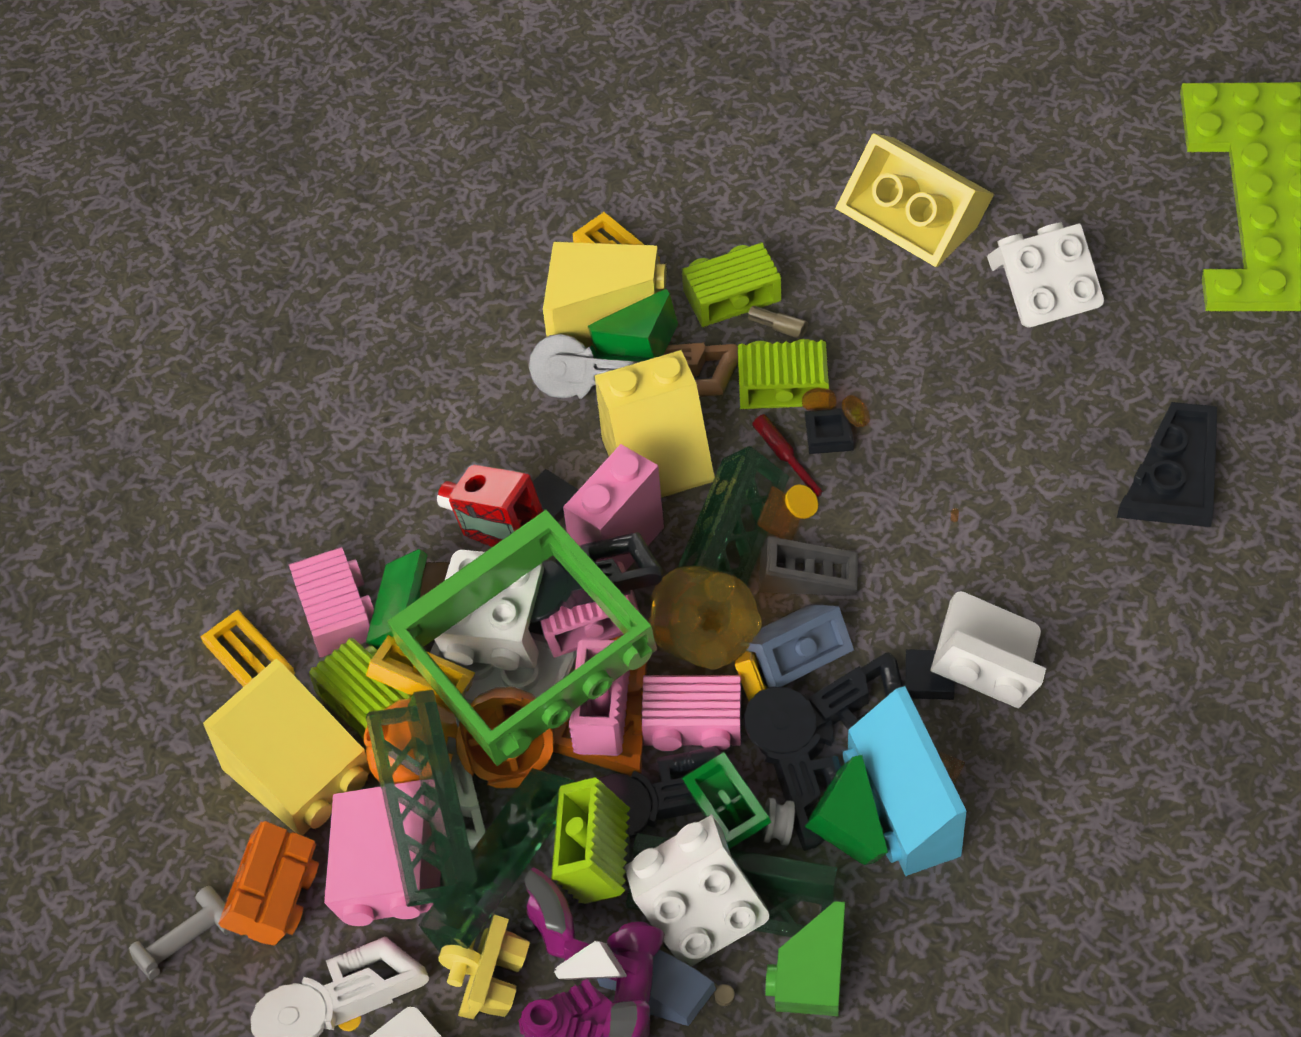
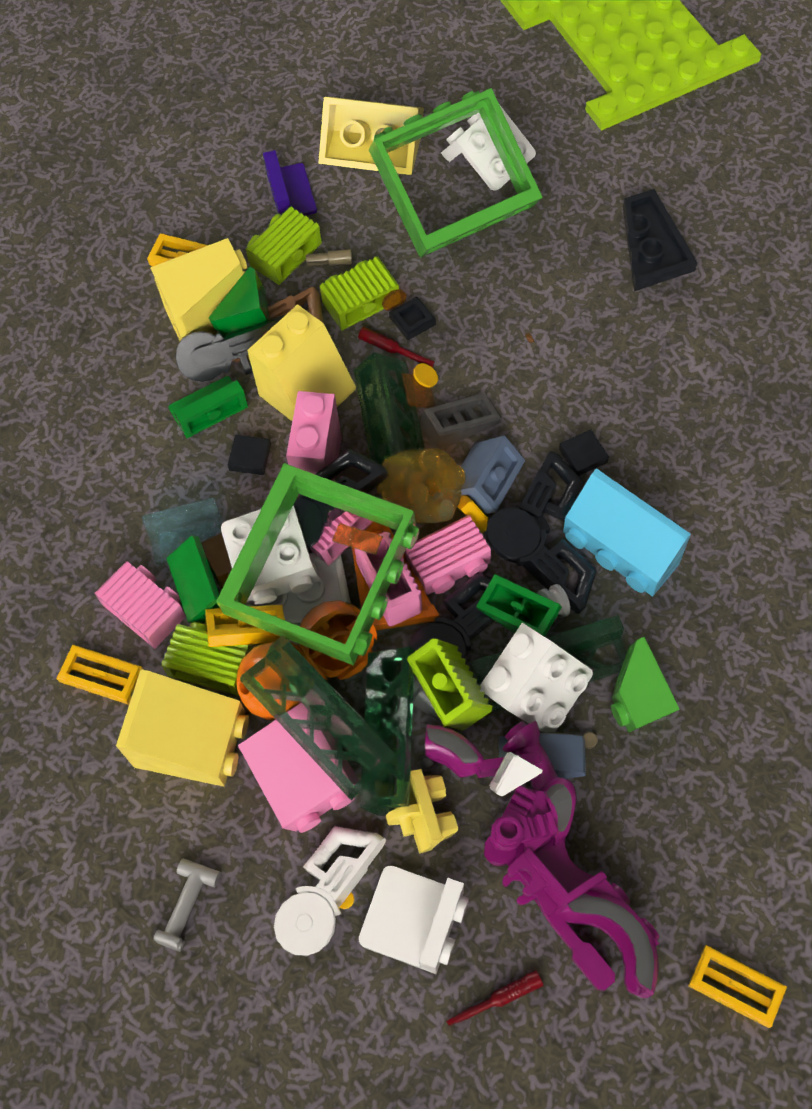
camera: 30 degrees left, 10 degrees up
(269, 884) = (230, 835): orange brick -> none
(431, 533) = (175, 525): none -> clear light blue panel
(490, 502) = (223, 475): red torso -> none
(536, 425) = (208, 406): none -> green panel
(578, 629) = (357, 538): none -> clear orange piece
(781, 220) = (289, 186): none -> dark purple panel
(849, 815) = (599, 573): green slope -> none
(855, 411) = (422, 296): clear orange piece -> none
(989, 650) = (616, 420): white bracket -> none
(991, 211) = (444, 116): none -> bright green window

